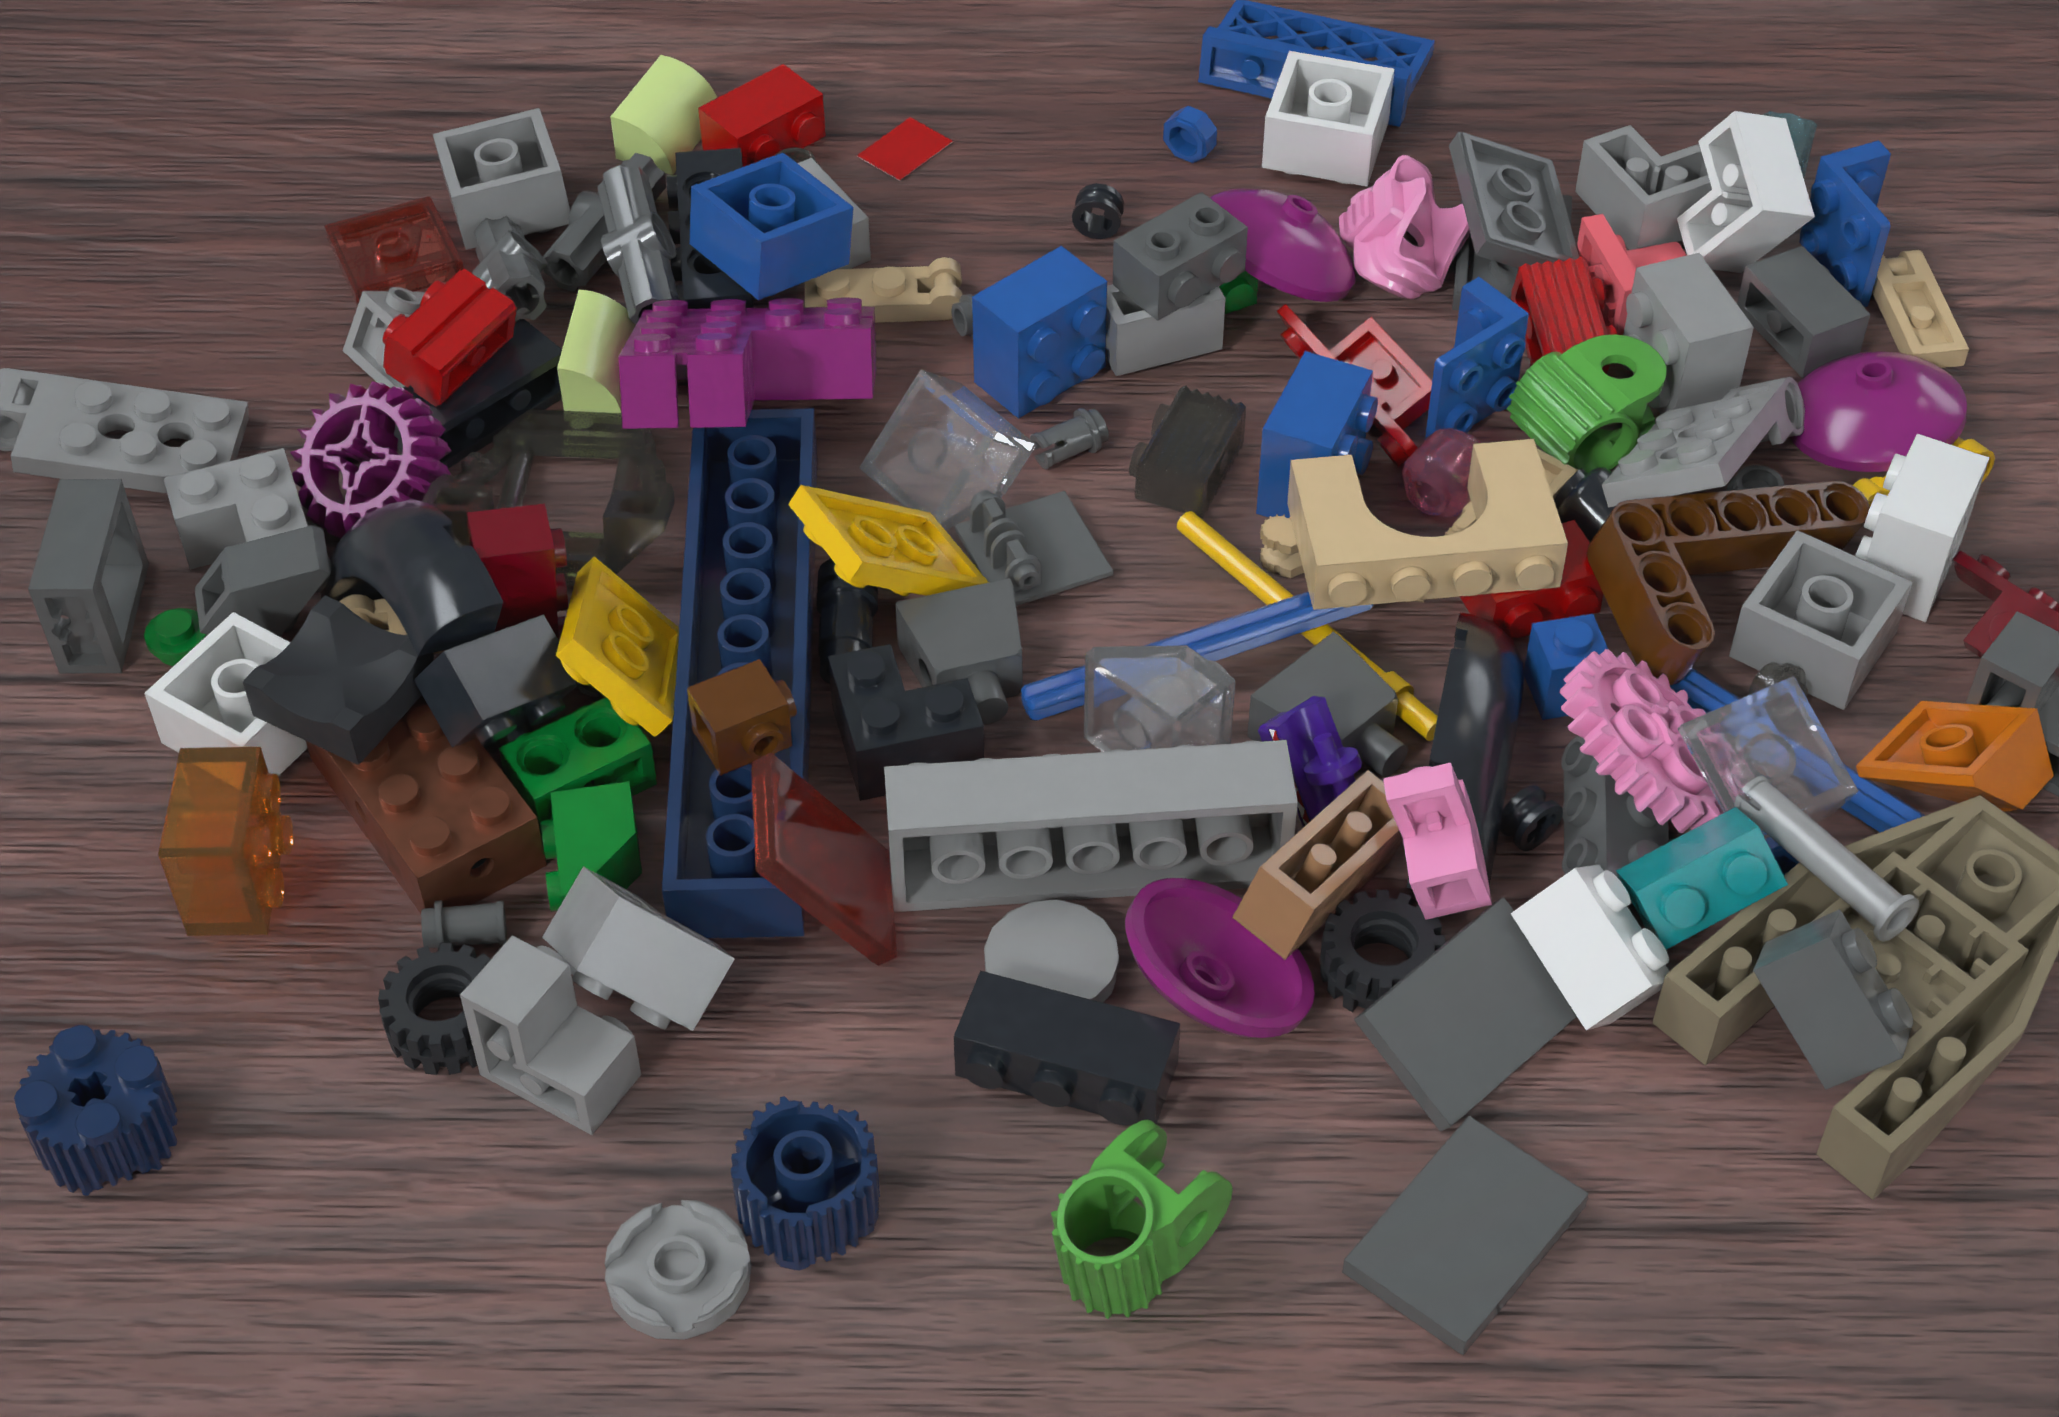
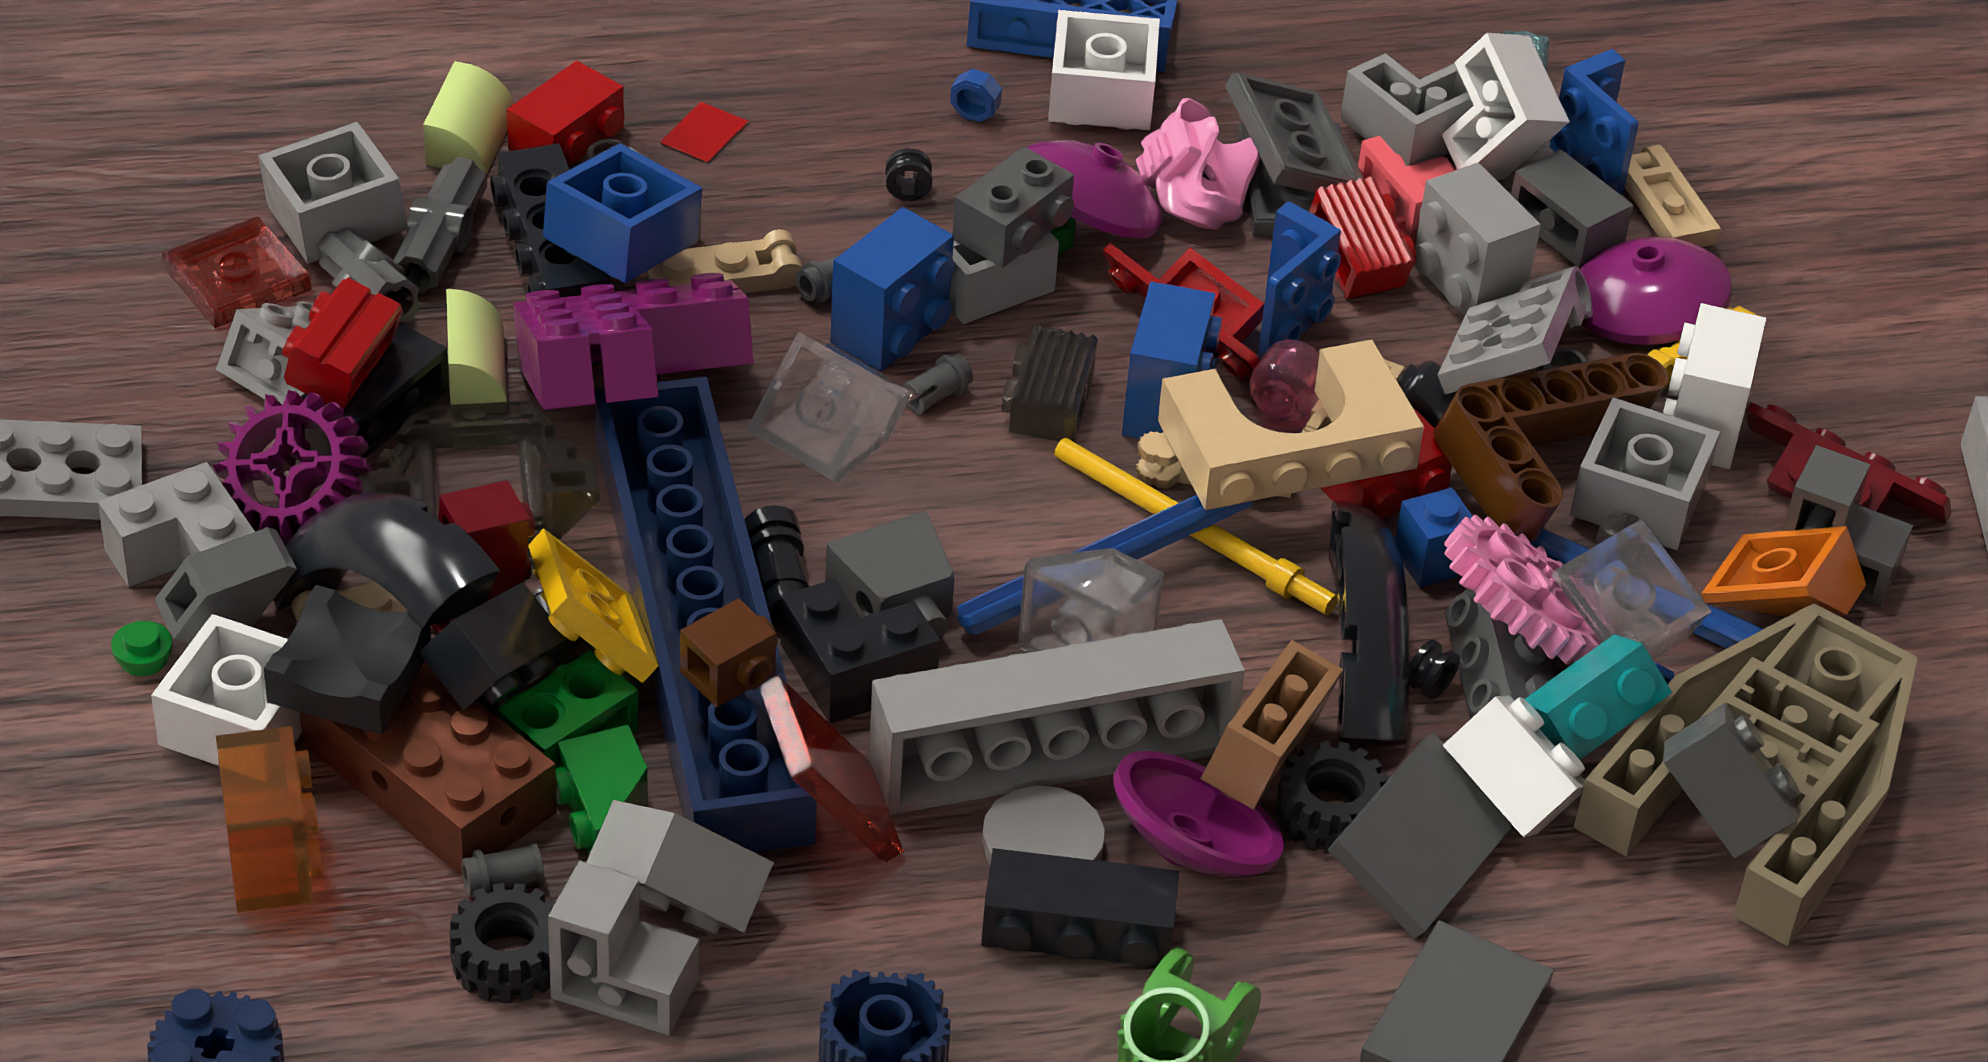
camera: 15 degrees left, 5 degrees down
(92, 573) = (52, 598): dark grey window -> none
(637, 240) = (488, 240): dark grey piece -> none
(884, 543) = (802, 491): yellow plate -> none
(1034, 544) = (928, 478): dark grey hinge -> none
(1316, 754) = (1250, 637): dark purple hips -> none
(1356, 696) = (1244, 590): dark grey torso -> none
(1439, 840) = (1372, 688): bright pink brick -> none
(1570, 397) = (1390, 303): bright green piece -> none
(1828, 859) = (1702, 667): light grey pin -> none

